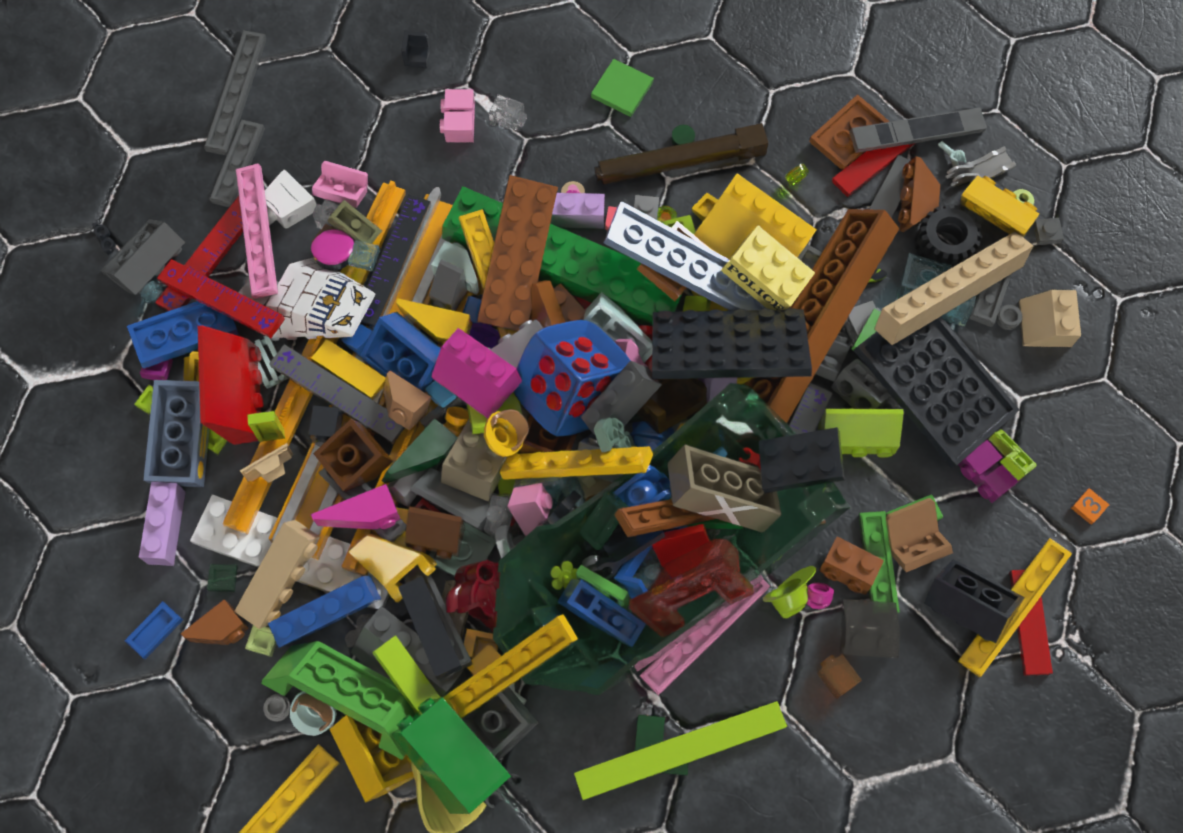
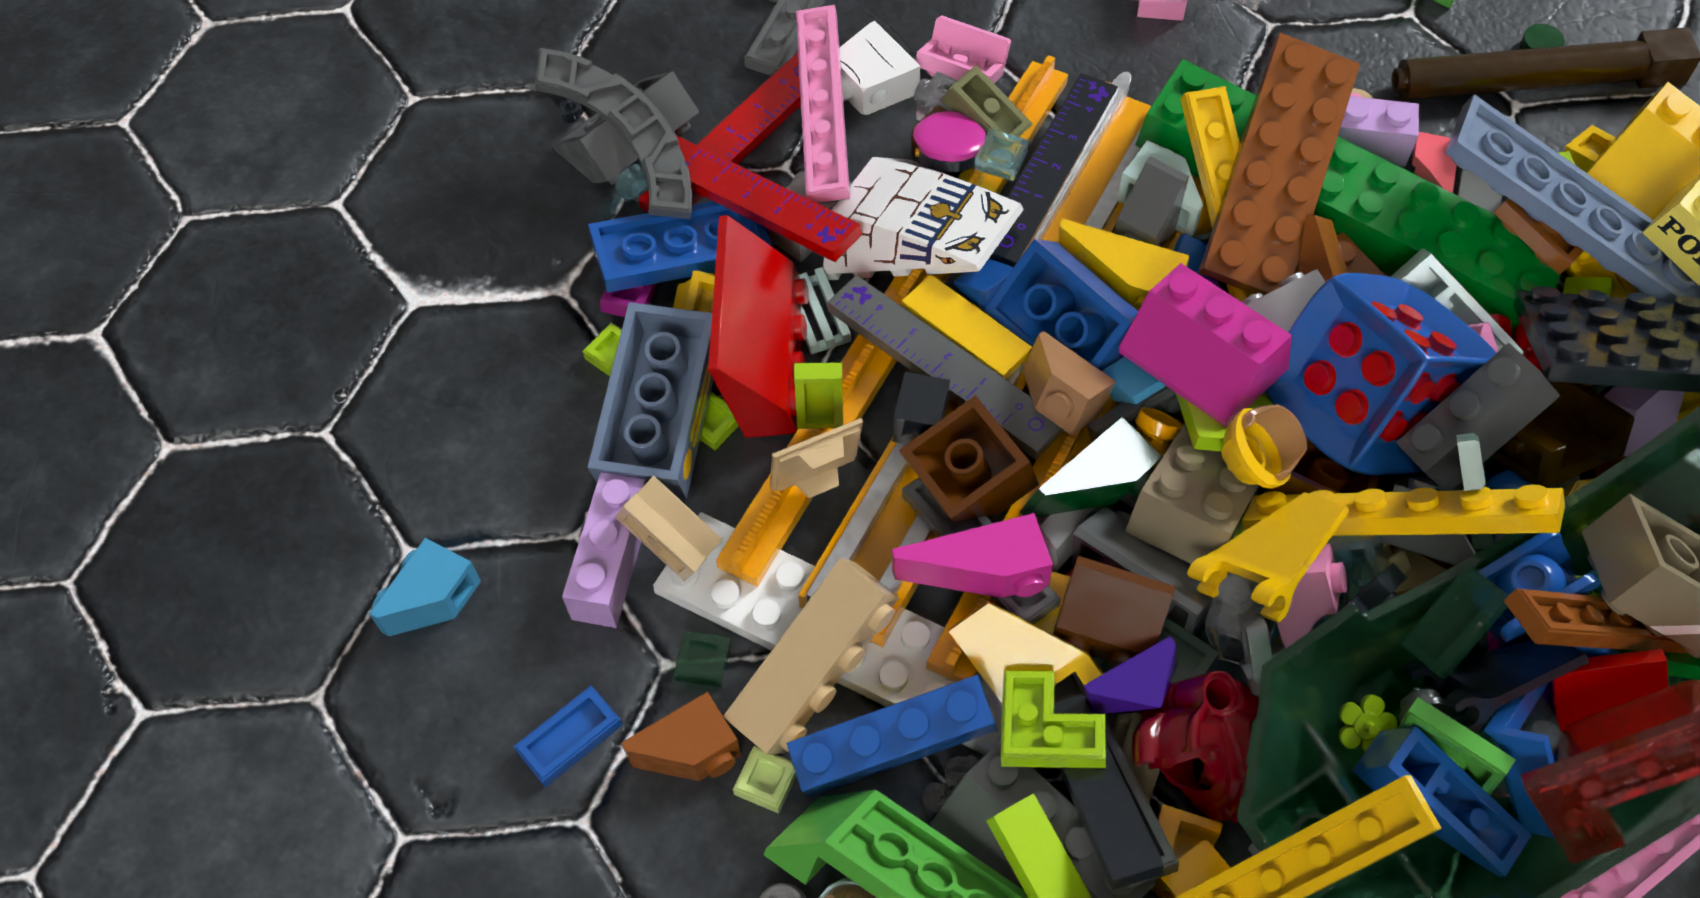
camera: 10 degrees right, 10 degrees down
(64, 559) = (426, 591): none -> dark azure slope
(144, 256) = (632, 116): none -> dark grey tile
(193, 509) = (668, 528): none -> tan panel
(397, 602) = (1038, 736): none -> lime tile
(448, 568) = (1135, 684): none -> dark purple slope
(511, 492) = (1273, 552): none -> yellow flag

